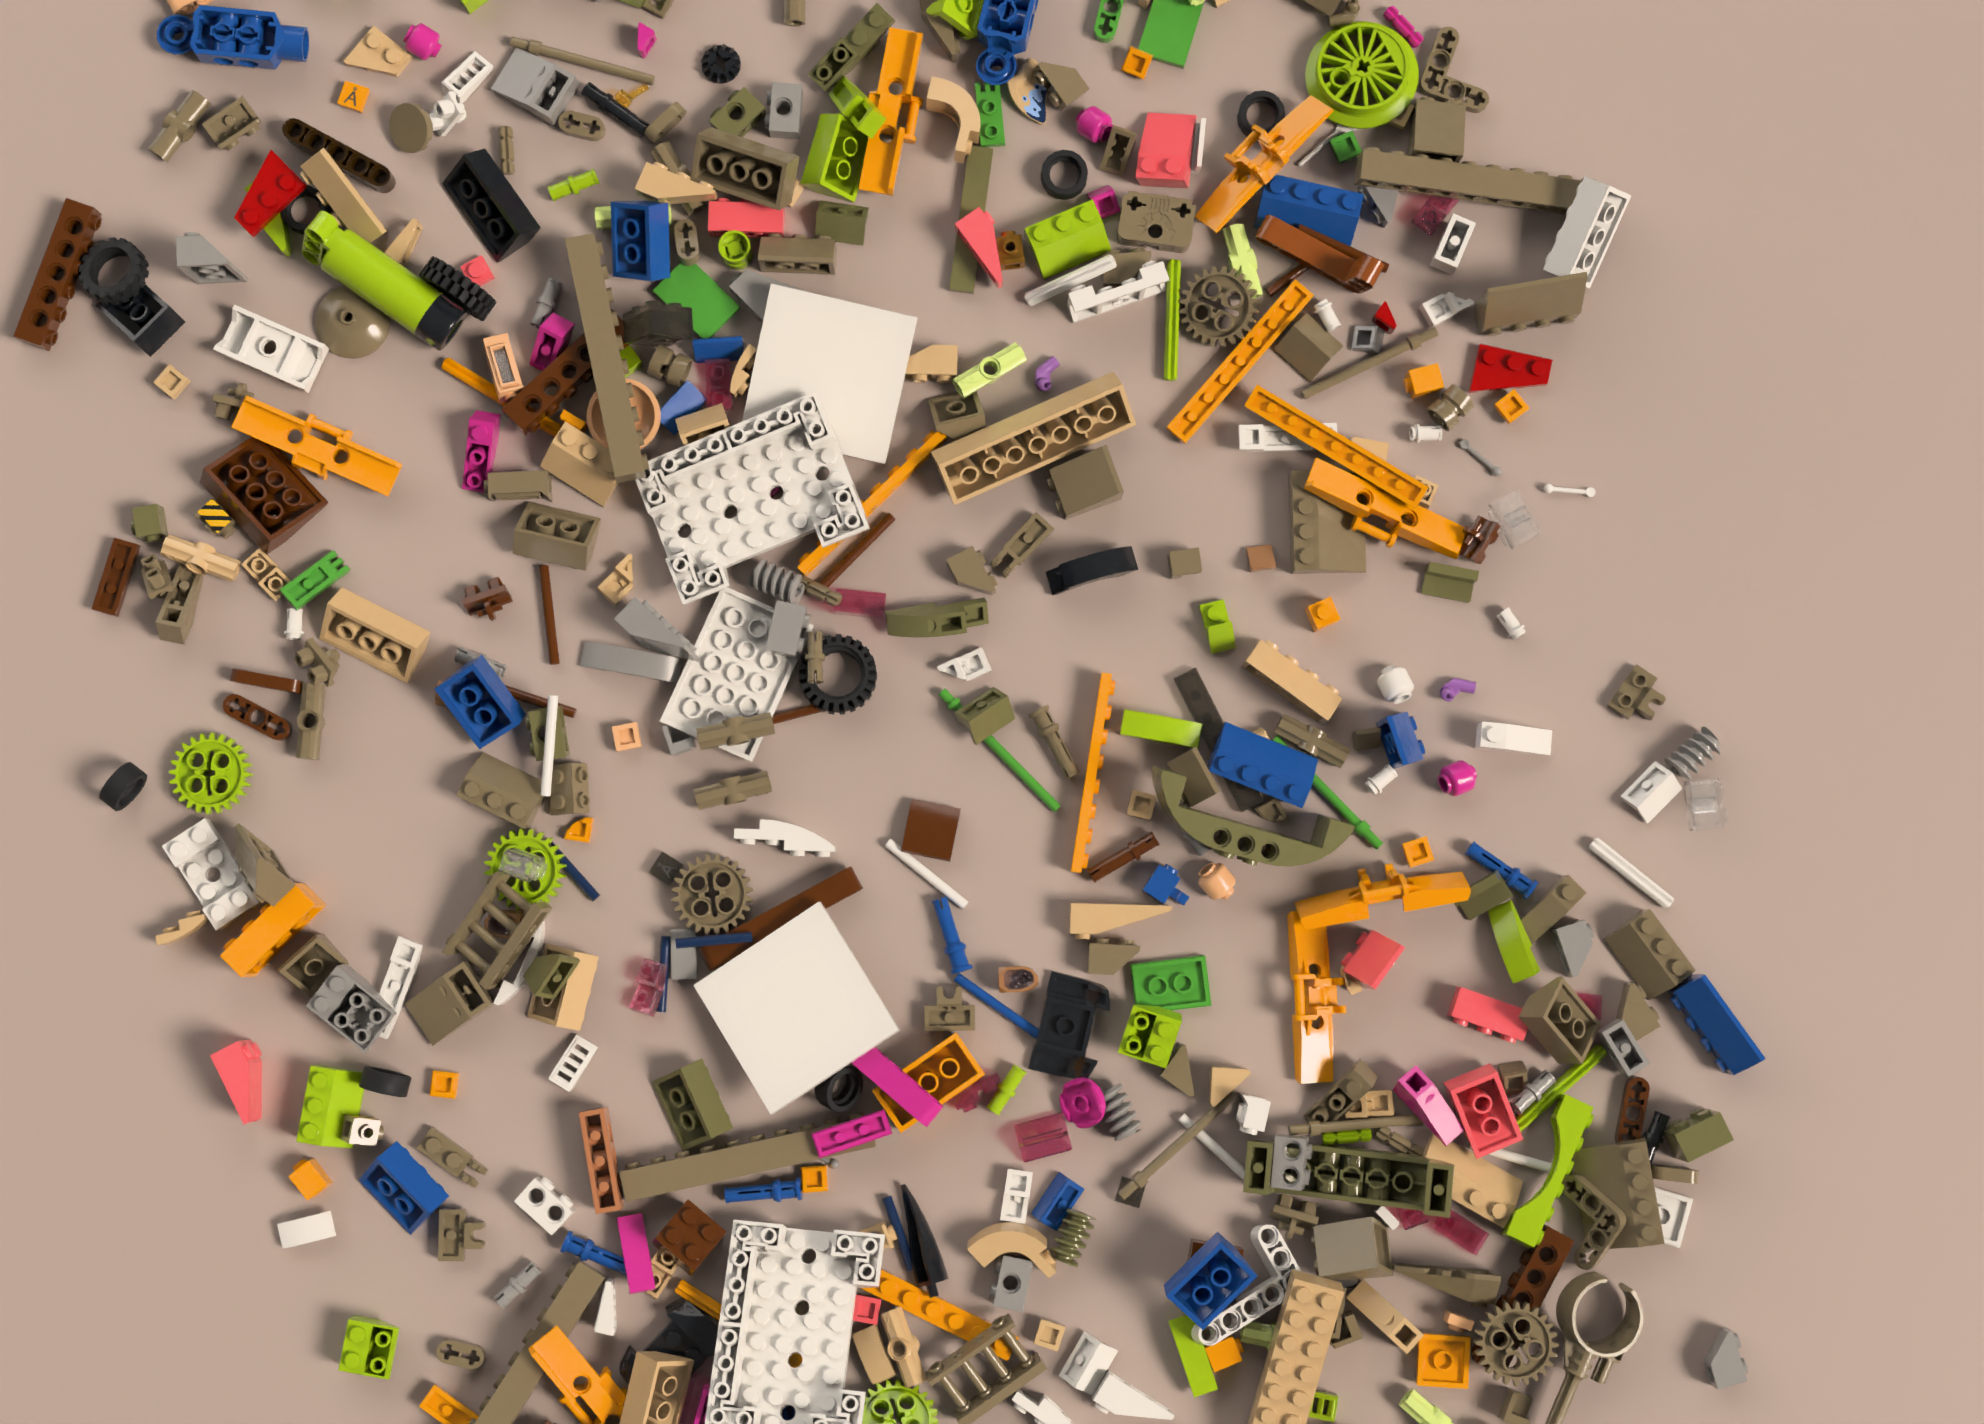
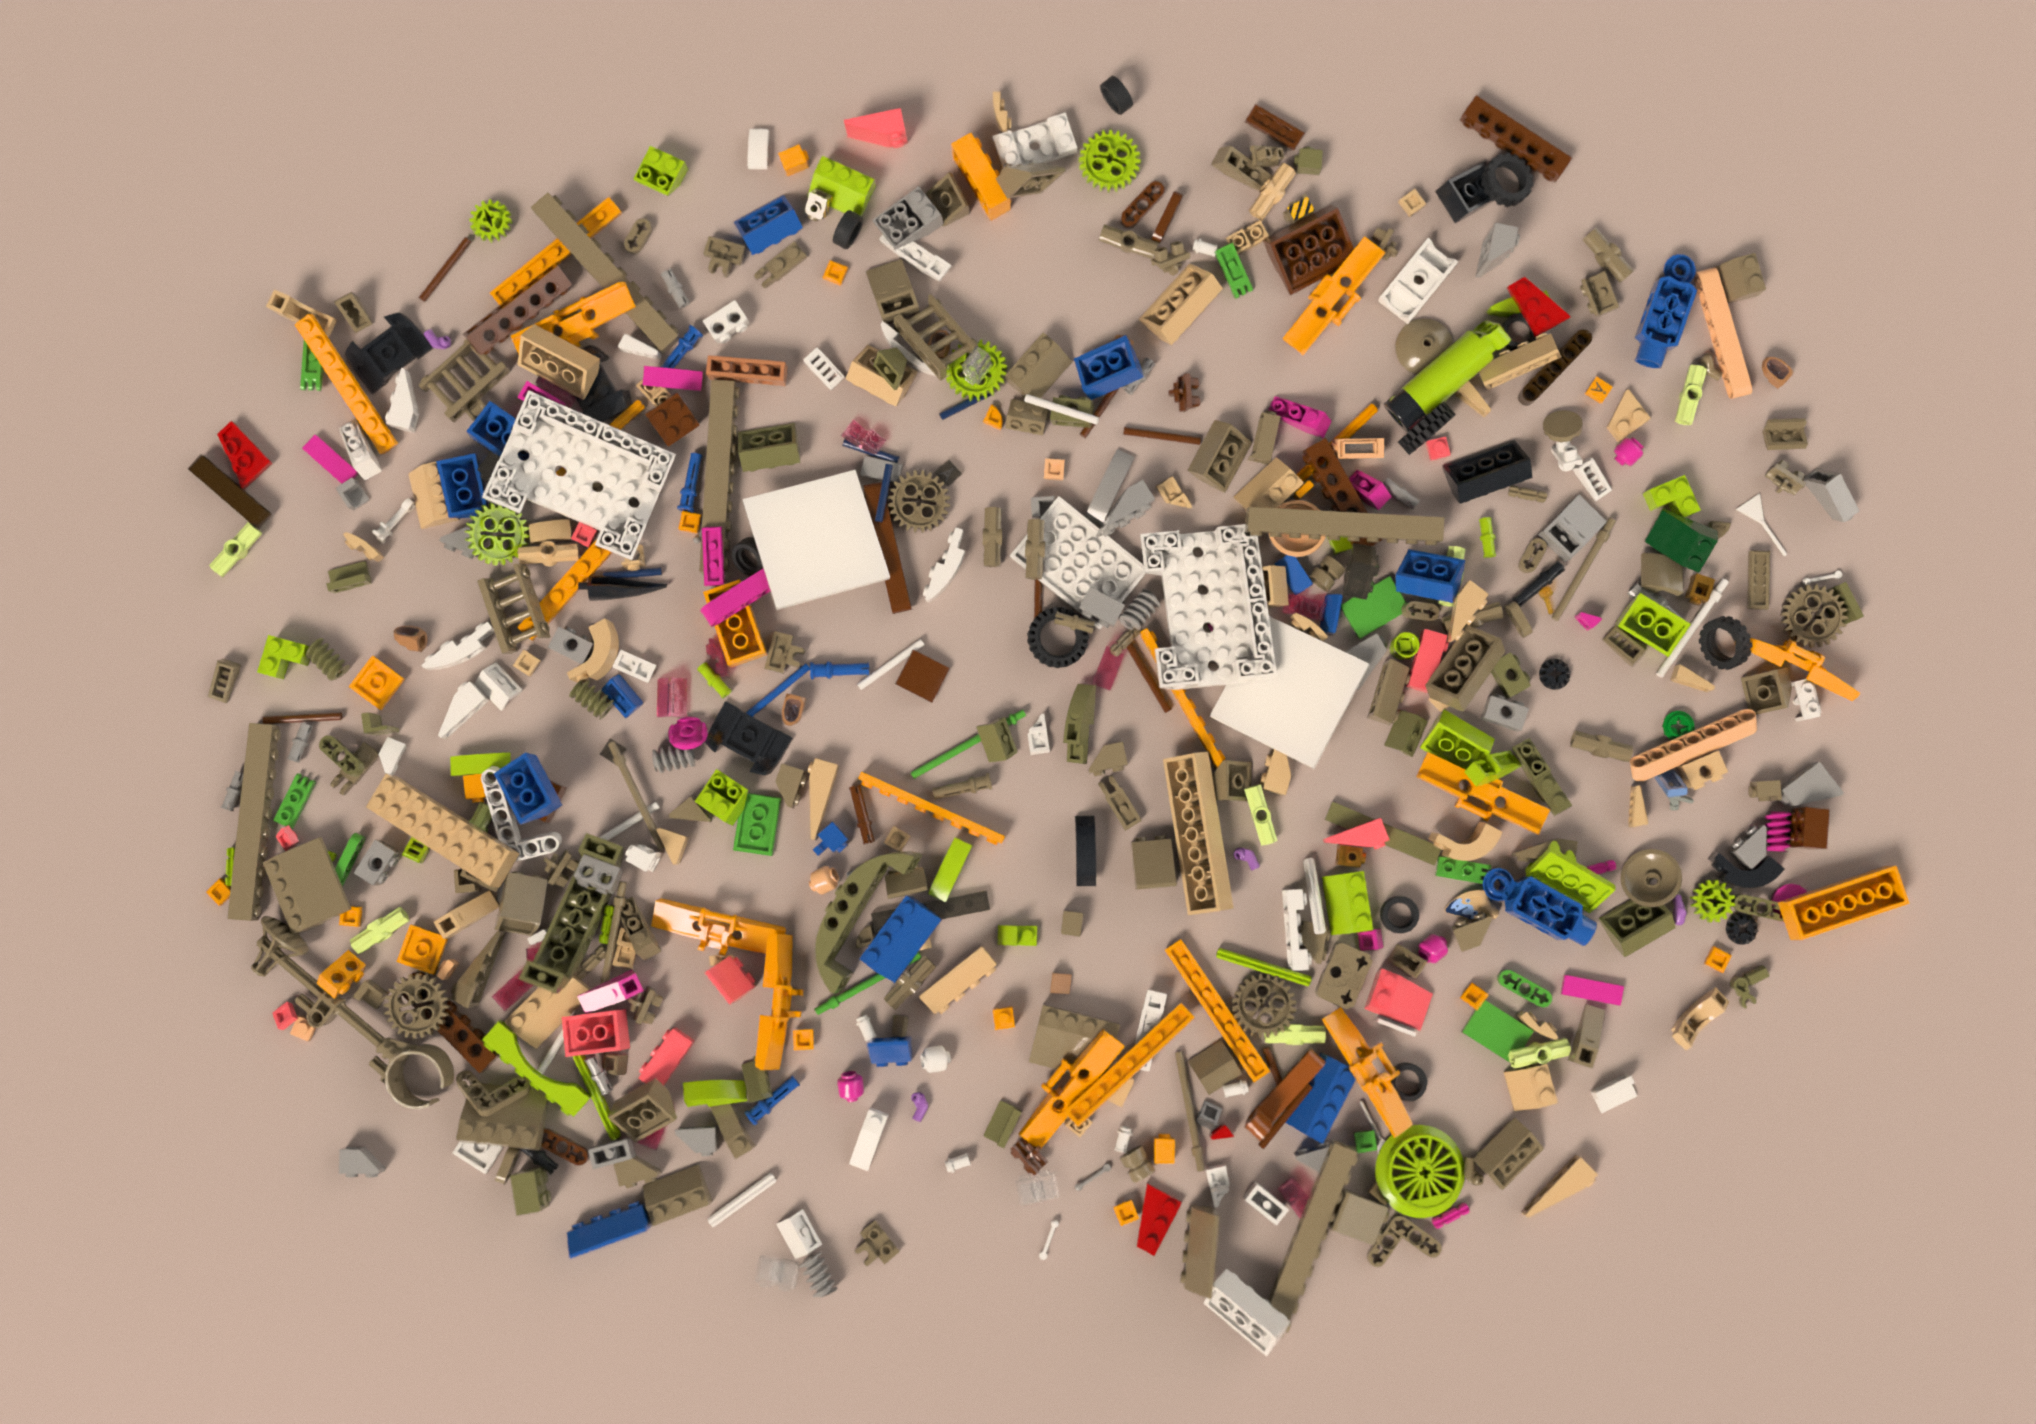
camera: 115 degrees right, 0 degrees up
(1431, 1063) = (642, 1013): none -> dark tan hips

